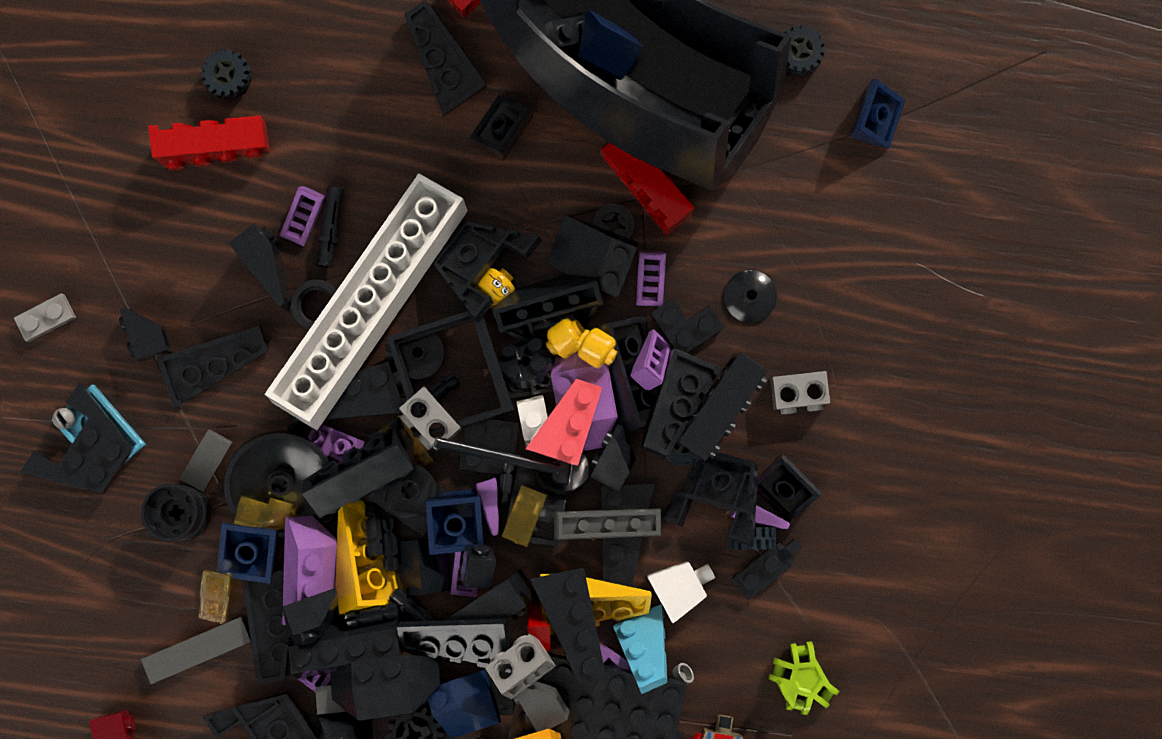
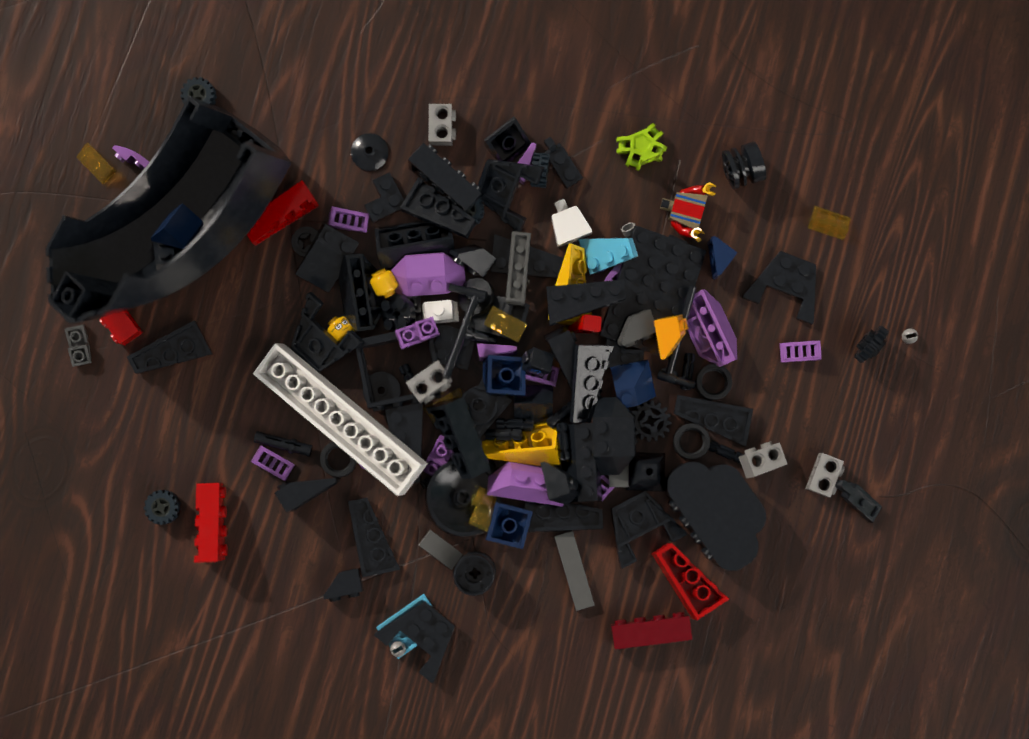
camera: 80 degrees left, 0 degrees up
(44, 317) = (323, 657): light grey plate -> none
(215, 596) = (537, 552): clear yellow slope -> none
(498, 393) = (417, 332): none -> medium lavender slope
(502, 126) = (225, 313): black slope -> none
(523, 672) = (613, 334): light grey brick -> none
(568, 425) = (444, 285): coral wing -> none
(596, 348) = (393, 260): yellow head -> none
(651, 363) = (408, 225): medium lavender slope -> none
(878, 115) = (251, 47): dark blue slope -> none

